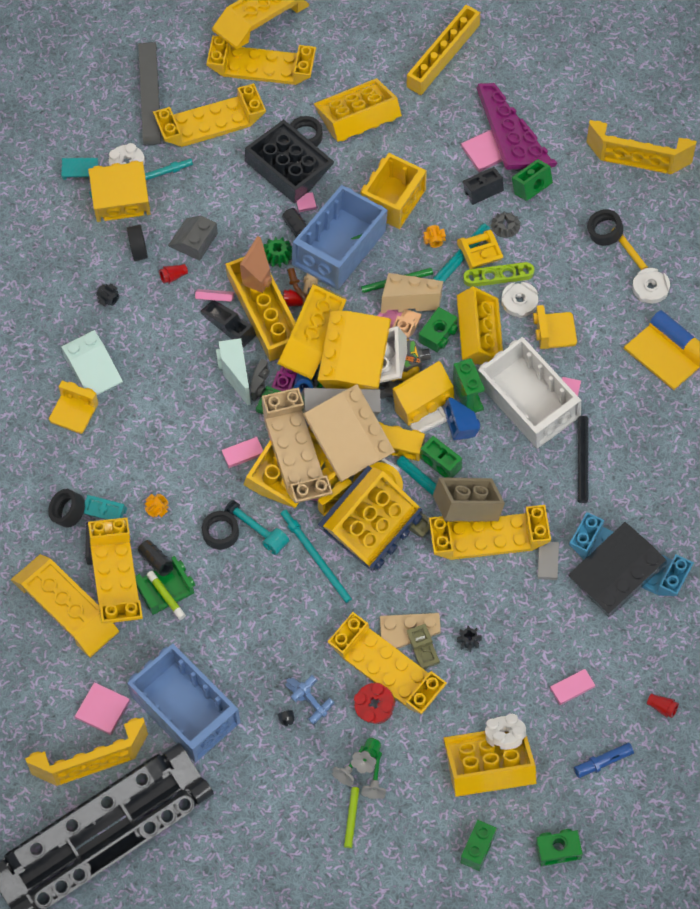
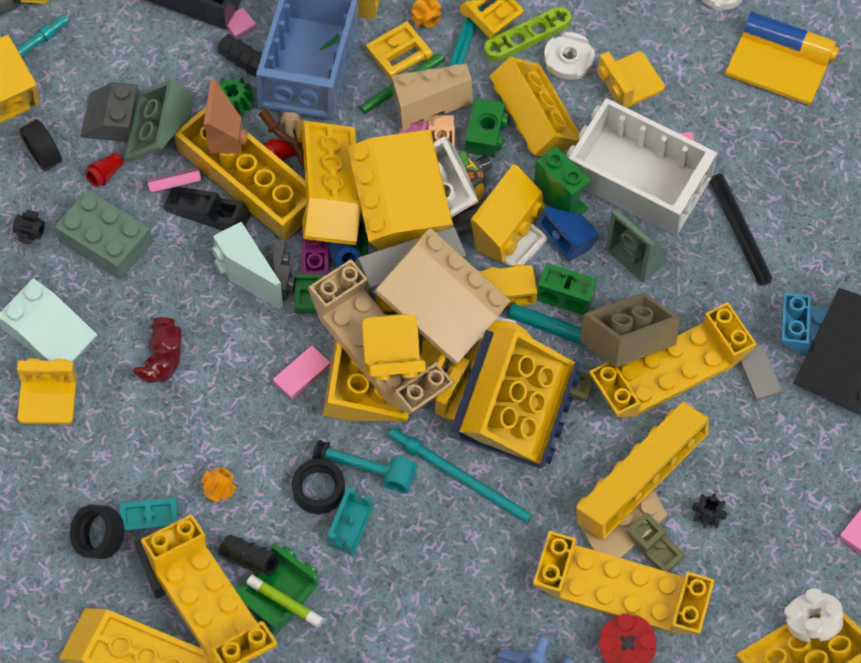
camera: 25 degrees left, 0 degrees up
(153, 316) = (103, 234): none -> sand green brick
(159, 410) = (166, 350): none -> dark red animal
(221, 248) = (158, 117): none -> sand green slope
(230, 560) = (350, 522): none -> teal hinge
(300, 454) = (391, 346): none -> yellow bracket
(404, 251) = (395, 44): none -> yellow plate
(435, 595) = (642, 470): none -> yellow brick
(500, 444) = (633, 247): none -> sand green slope

